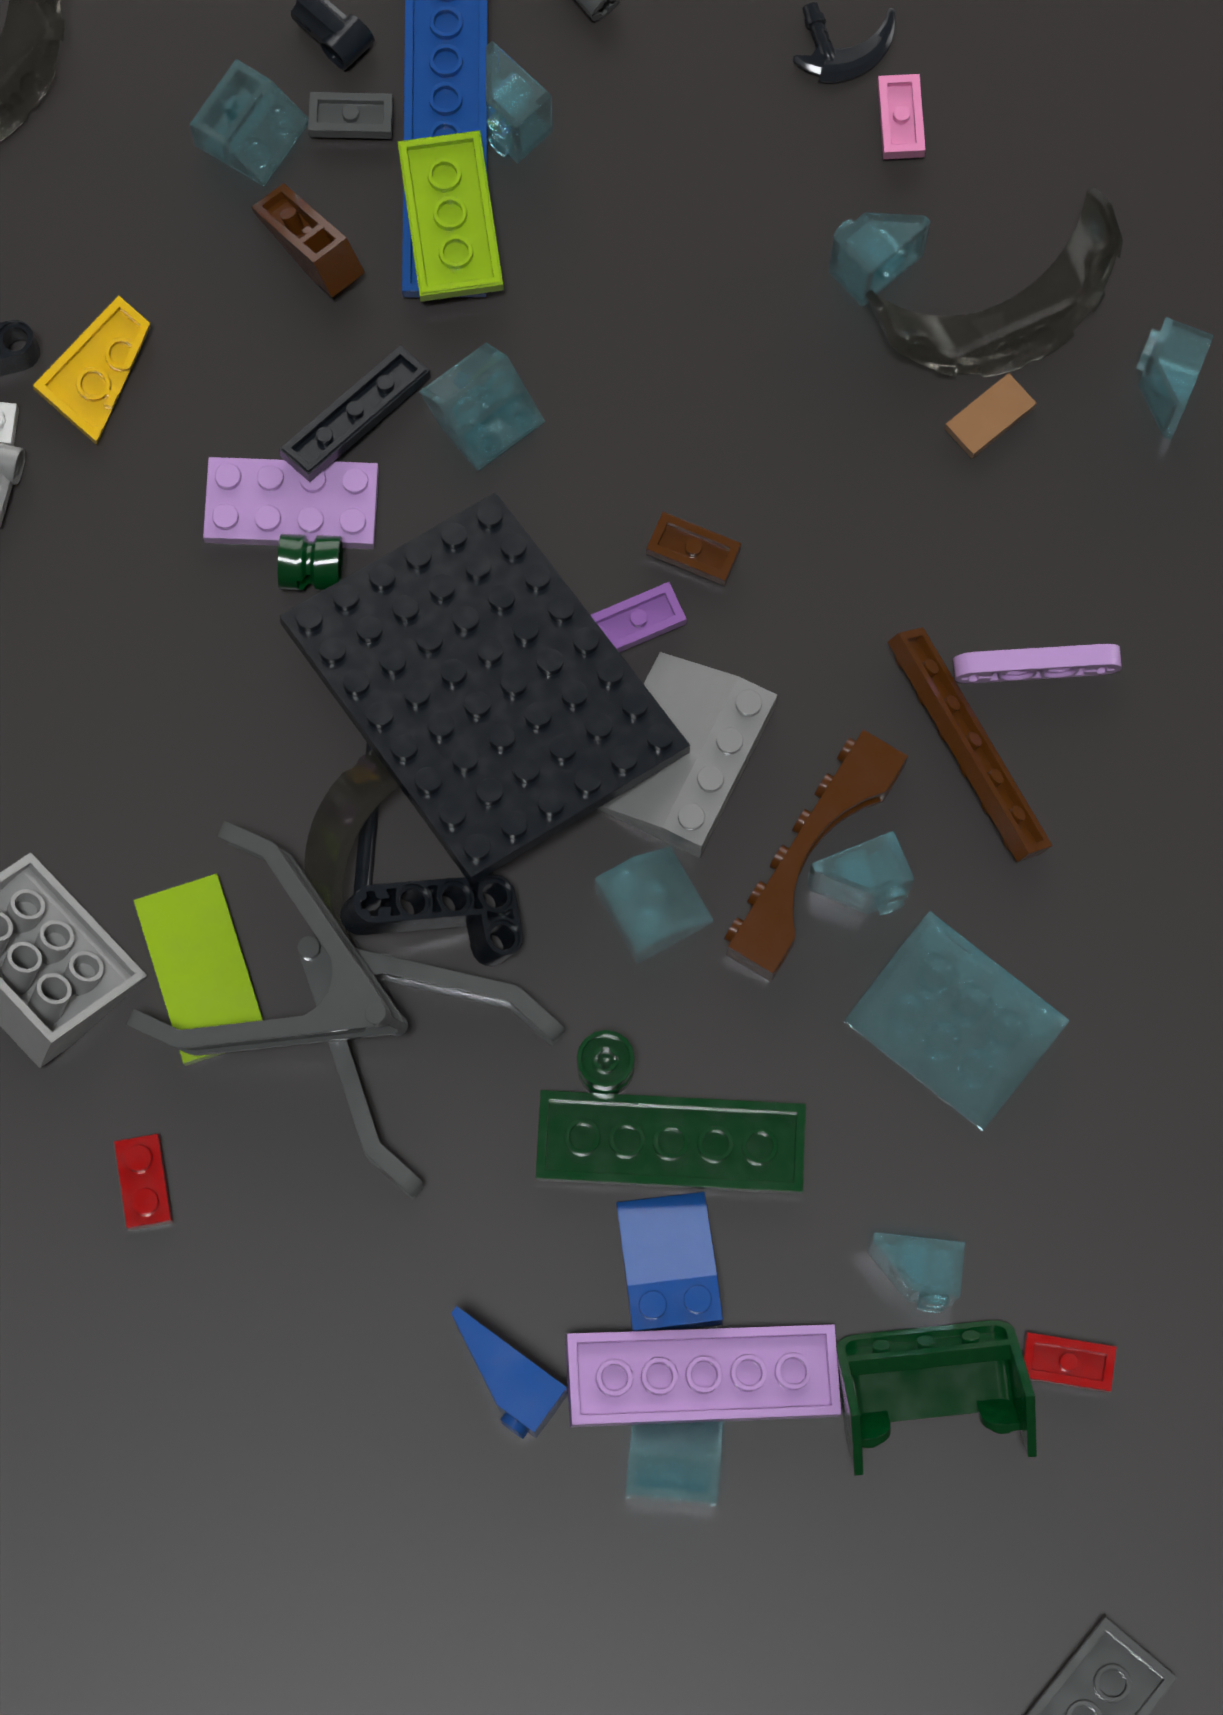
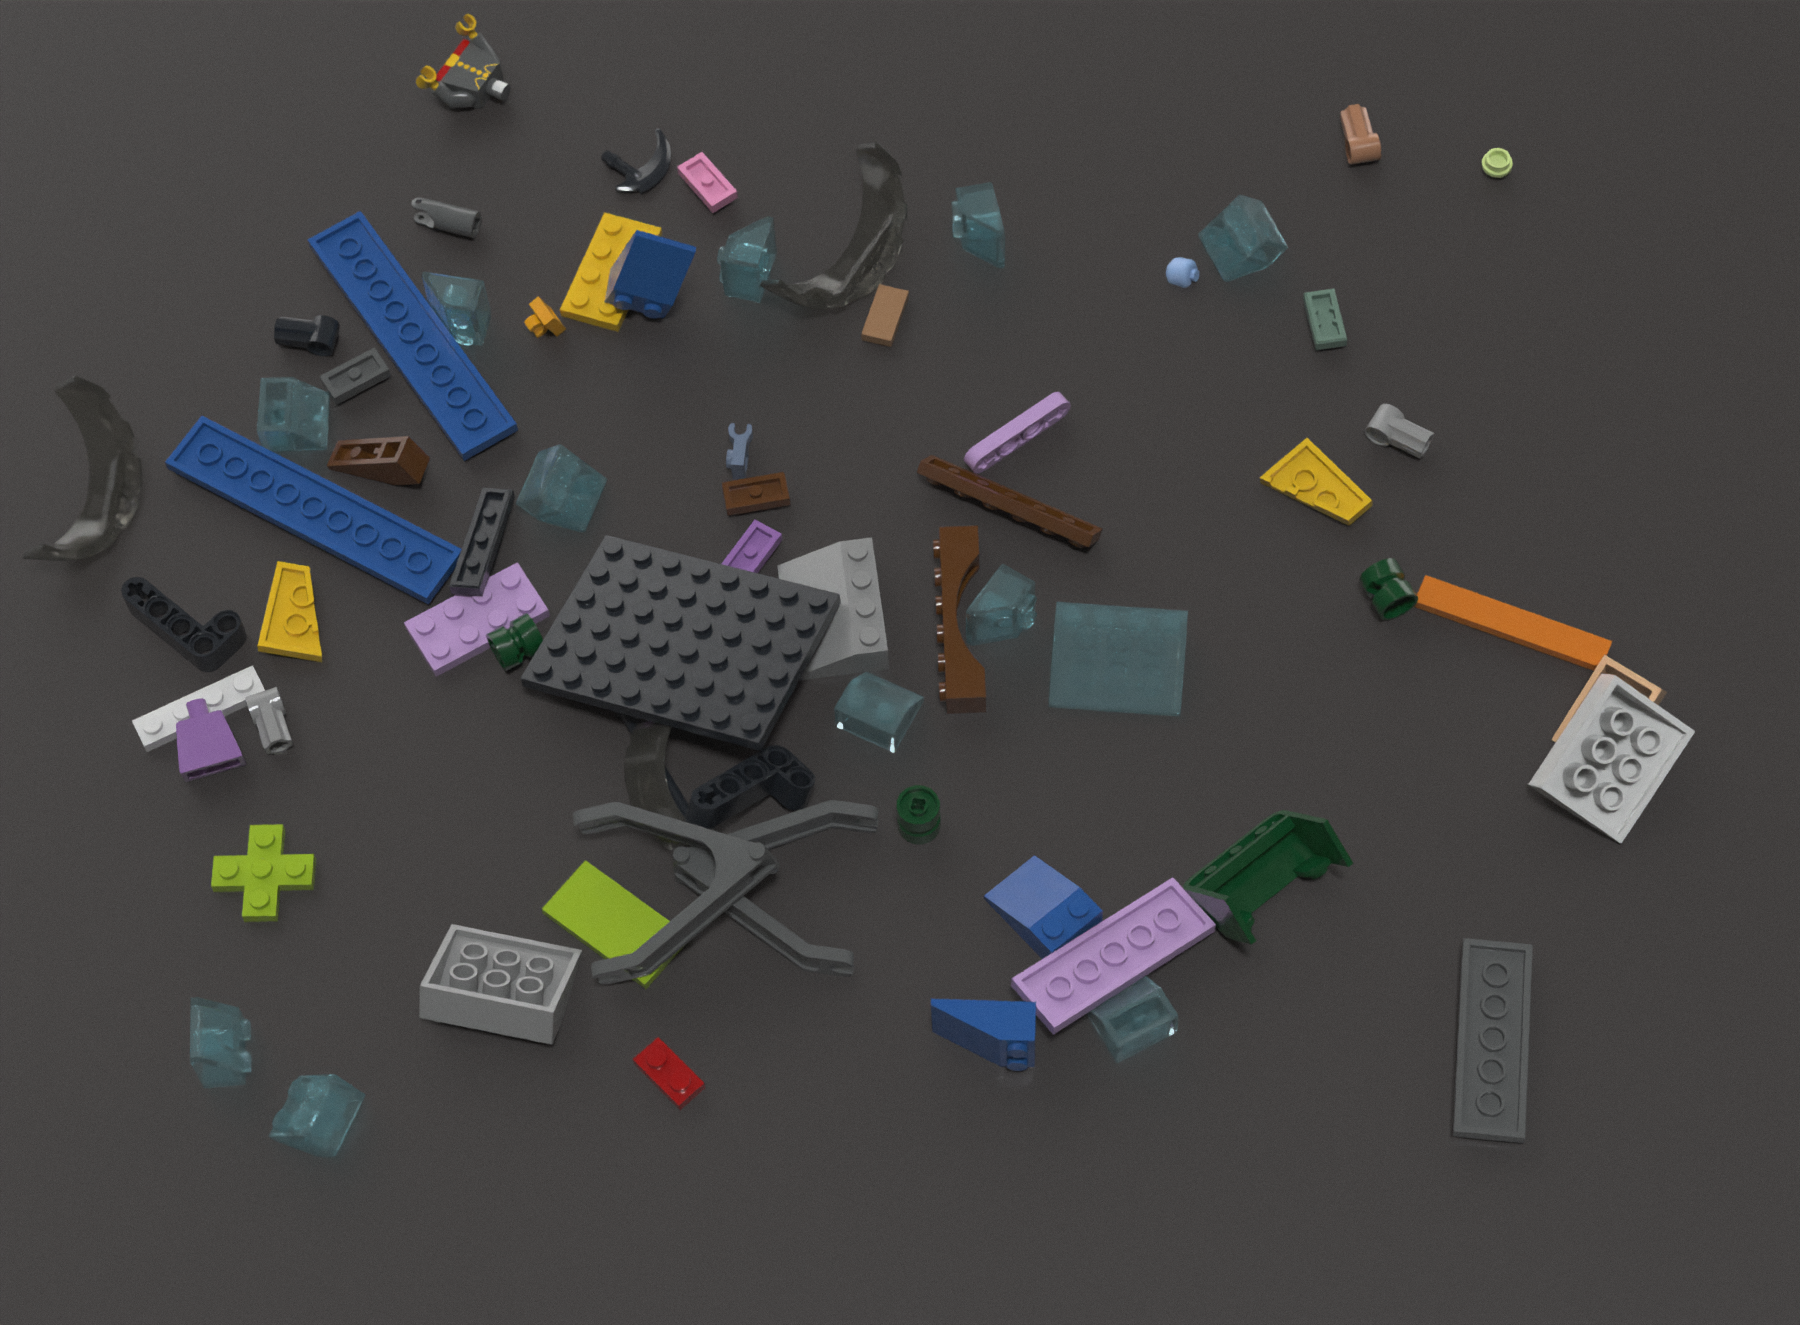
camera: 30 degrees left, 15 degrees down
(202, 255) = (314, 509): none -> blue plate
(450, 216) = (463, 393): lime tile -> none
(603, 177) = (543, 319): none -> light orange tile
(671, 1142) = (992, 838): dark green plate -> none
(703, 491) = (738, 458): none -> sand blue plate
(719, 162) = (588, 290): none -> yellow plate
(742, 204) = (648, 274): none -> blue slope
(920, 1268) = (1200, 807): clear light blue slope -> none
(1069, 1362) = (1337, 806): red plate -> none

